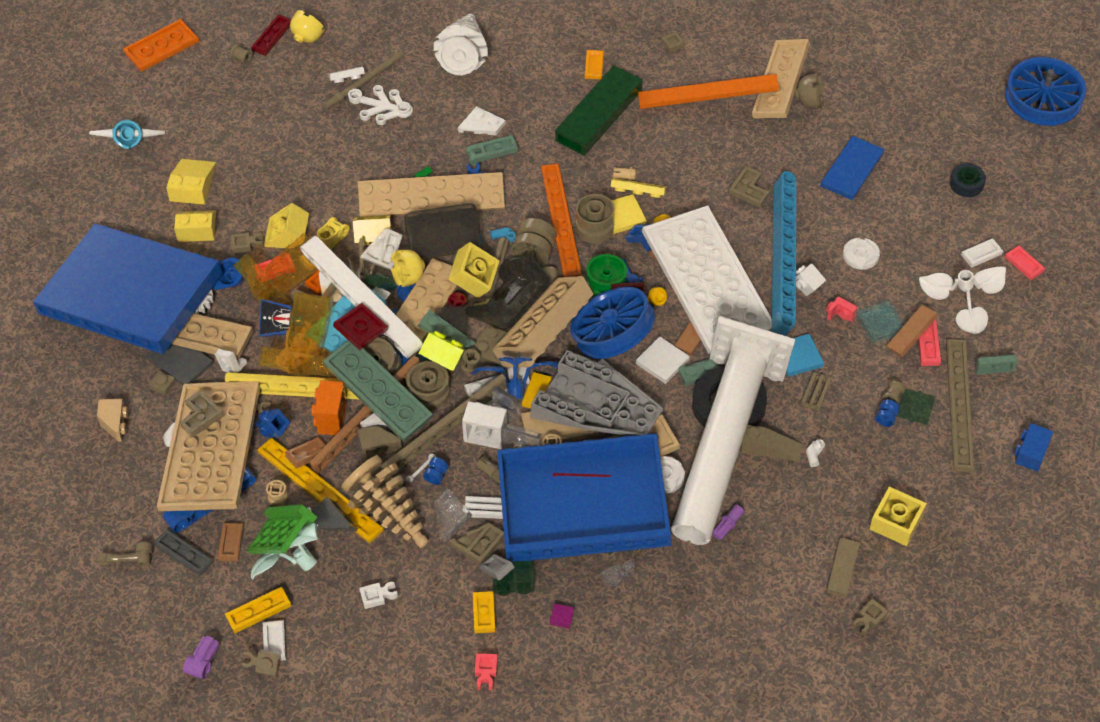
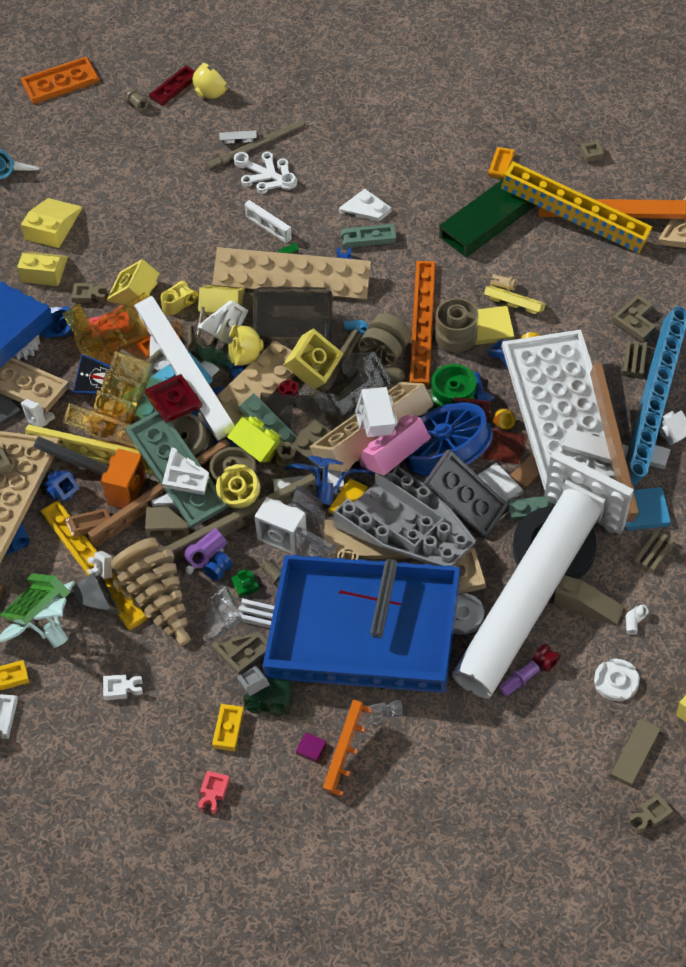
camera: 15 degrees right, 0 degrees up
(276, 395) = (70, 456): none -> dark grey axle
(276, 493) = (46, 559): tan wheel -> none
(332, 488) = (101, 565): none -> white tile
(389, 394) = (184, 474): none -> white wing
(396, 150) = (268, 221): none -> white tile
(422, 456) = (206, 546): none -> medium lavender piece
(440, 396) = (238, 486): none -> light yellow cylinder
(461, 46) = (362, 123): white plant -> none
(463, 482) = (244, 583): none -> green tile
(551, 309) = (375, 412): none -> white brick
(571, 336) = (392, 449): none -> bright pink slope
(593, 610) = (344, 747): none -> orange hinge
(597, 471) = (383, 599): none -> dark grey axle
(644, 368) = (466, 493): none -> dark grey tile
(665, 322) = (504, 447): none -> clear red piece
(674, 95) = (576, 207): none -> yellow brick
(744, 308) = (588, 445): none -> white tile
(747, 499) = (546, 657): none -> dark red wheel
(756, 212) = (636, 346): none -> dark tan tile
(756, 289) = (612, 434): none -> medium nougat tile
(801, 307) = (660, 457): none -> white tile
(816, 512) = (623, 680): none -> white tile

